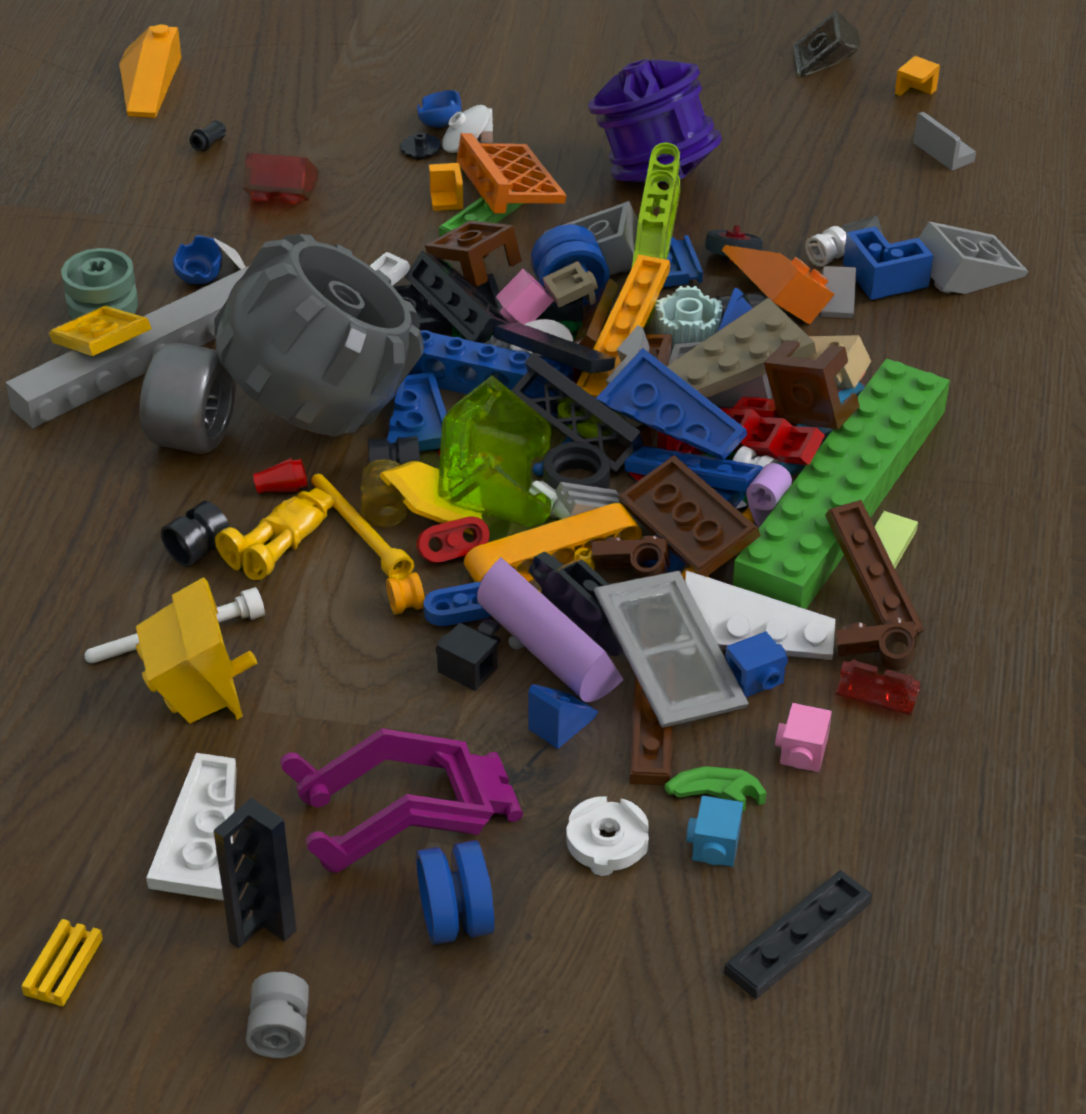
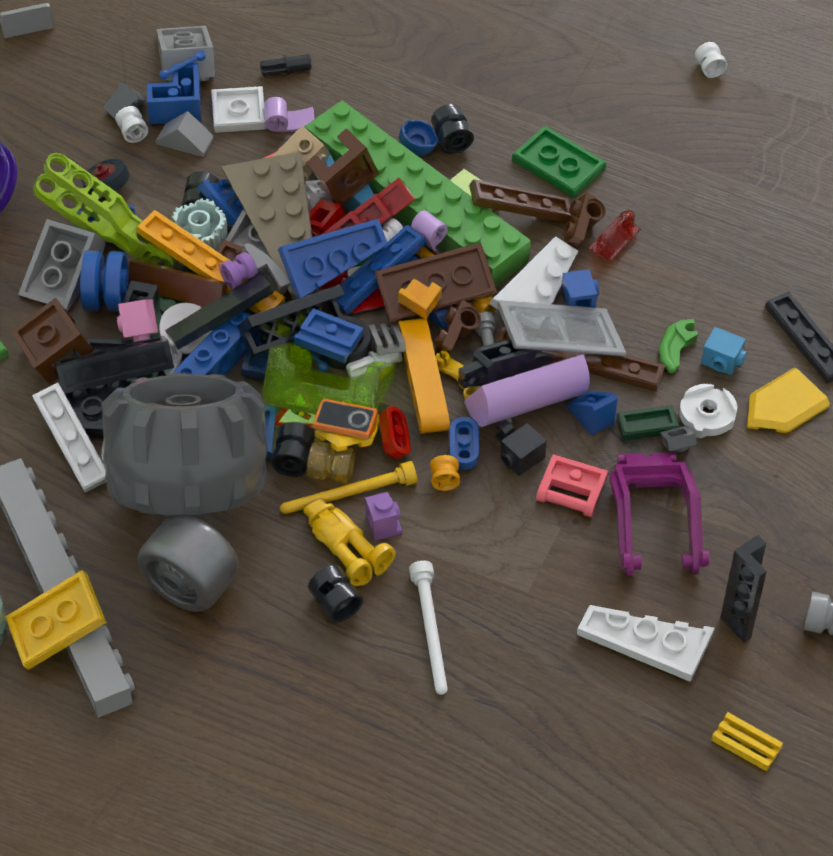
camera: 75 degrees left, 10 degrees up
(188, 655) = (499, 600): yellow piece -> none
(282, 477) = (280, 526): red cone -> none
(320, 551) = (382, 516): none -> medium lavender brick
(427, 473) = (345, 419): none -> slope
(441, 709) = (575, 478): none -> coral plate
(461, 891) = (758, 494): blue wheel -> none
(541, 806) = (678, 439): none -> dark grey plate
(560, 442) = (328, 335): none -> blue plate
(564, 776) = (646, 422): none -> dark green tile
(571, 284) = (147, 281): dark tan bracket -> none
(606, 337) = (237, 270): none -> medium lavender wheel
(647, 503) = (420, 297): none -> light orange panel
(661, 924) = (785, 403): none -> yellow tile
(784, 281) = (182, 157): orange slope -> none
(804, 737) = (654, 285): bright pink brick -> none
(908, 323) = (238, 109): none -> white tile
(914, 350) = (280, 120): none -> lavender panel
(941, 466) = (418, 137): none -> blue hair
(942, 252) = (199, 56): none -> blue hinge
(975, 493) = (452, 128): none -> black wheel
(991, 613) = (559, 161): none -> green tile
(1003, 342) = (286, 65): none -> black axle

